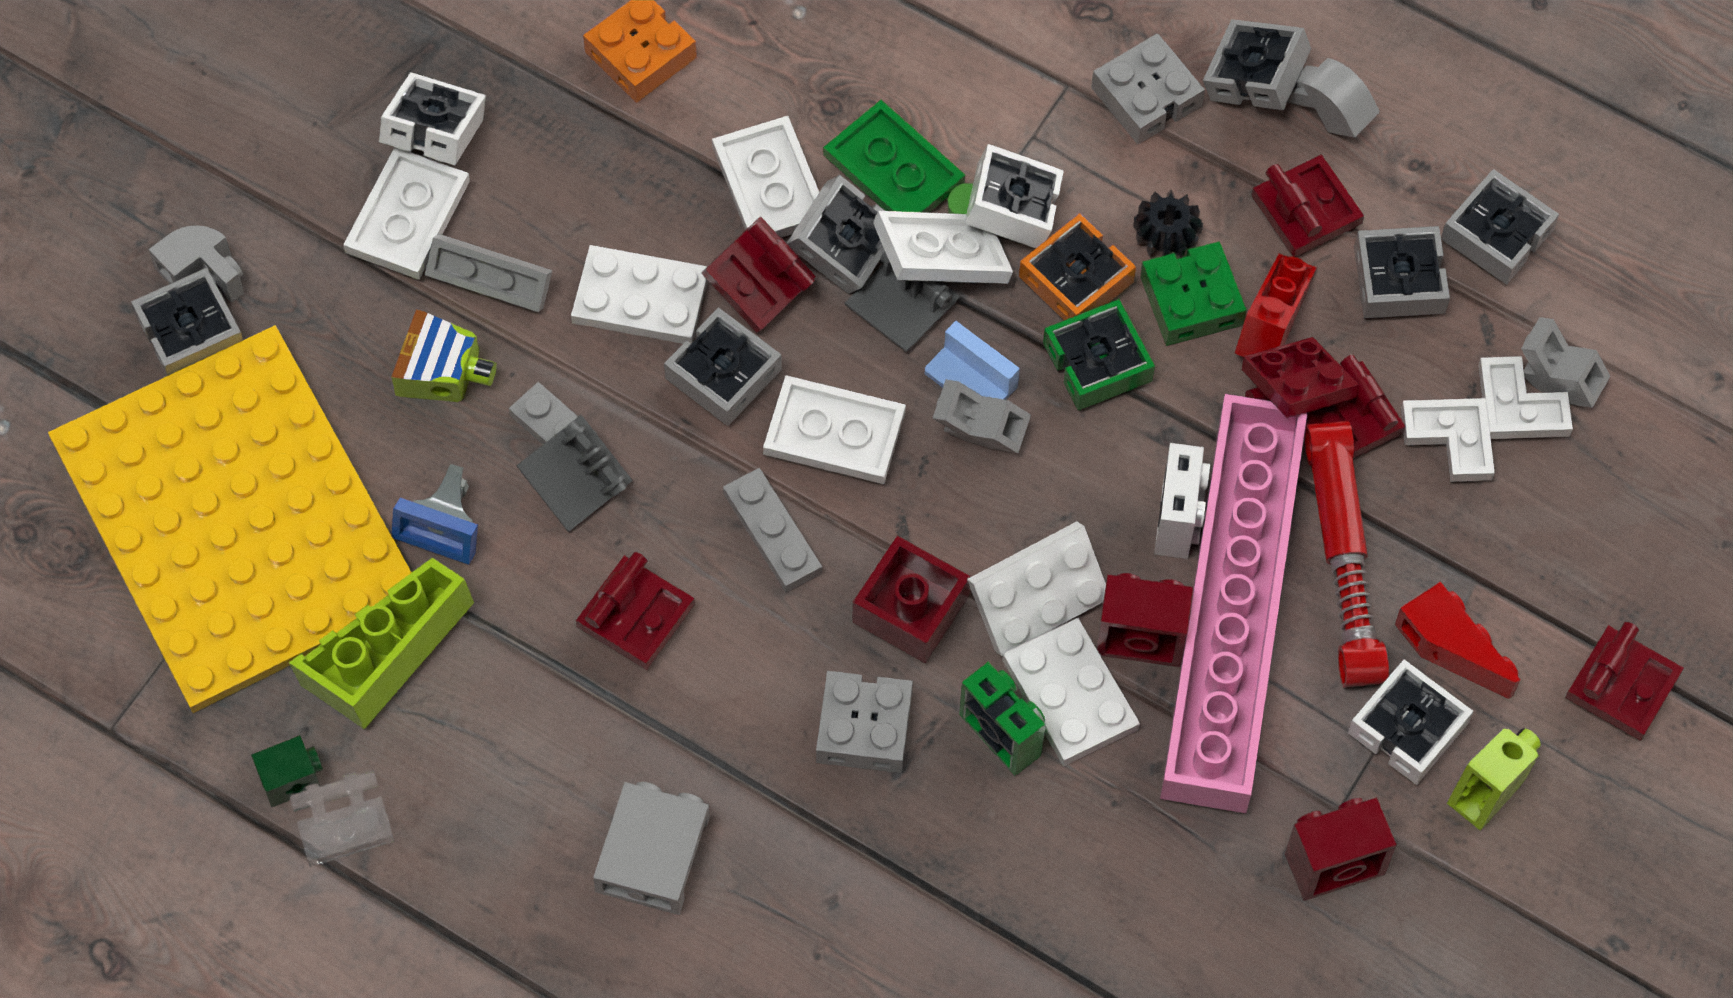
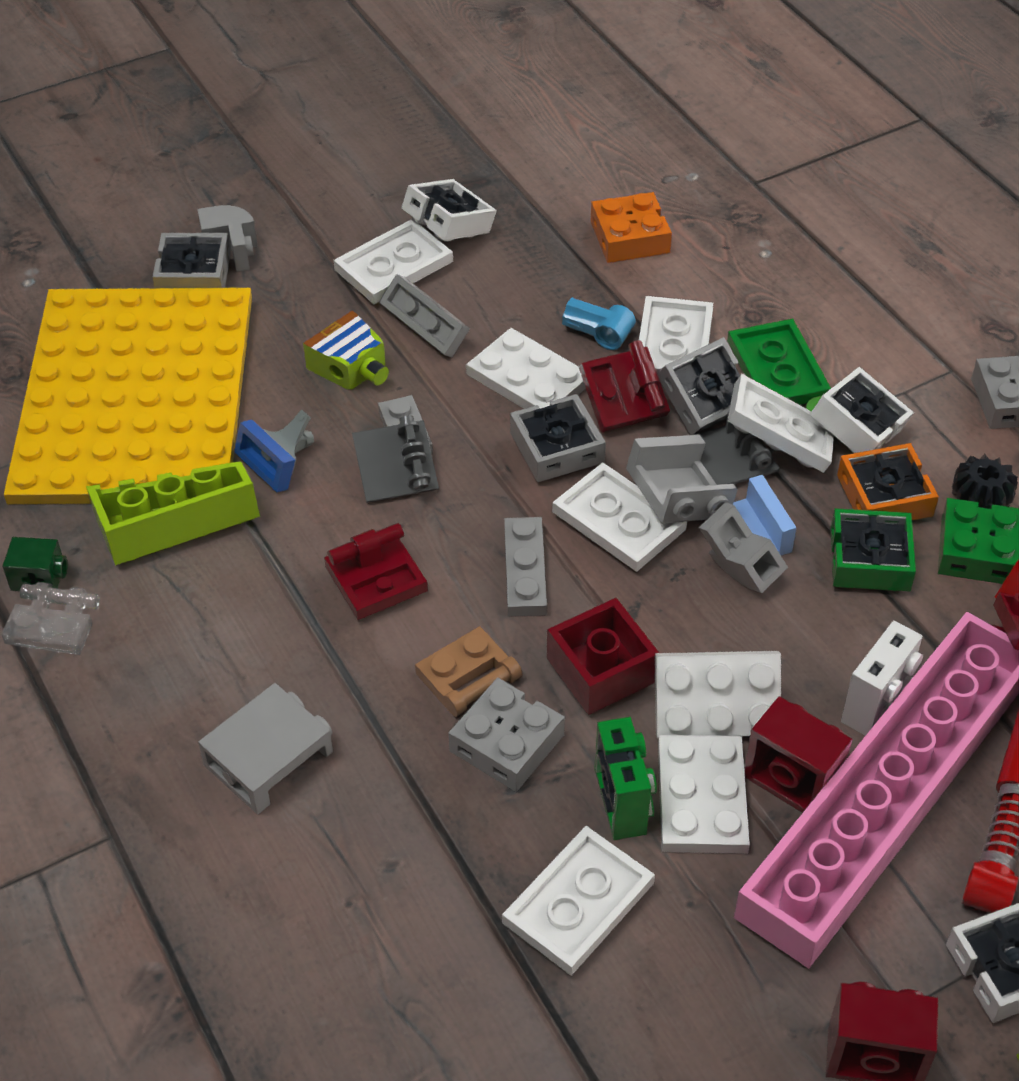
camera: 30 degrees right, 15 degrees down
(691, 194) = (607, 326): none -> dark azure piece
(775, 667) = (463, 662): none -> medium nougat plate
(875, 364) = (675, 479): none -> light grey panel
(1020, 850) = (578, 900): none -> white plate

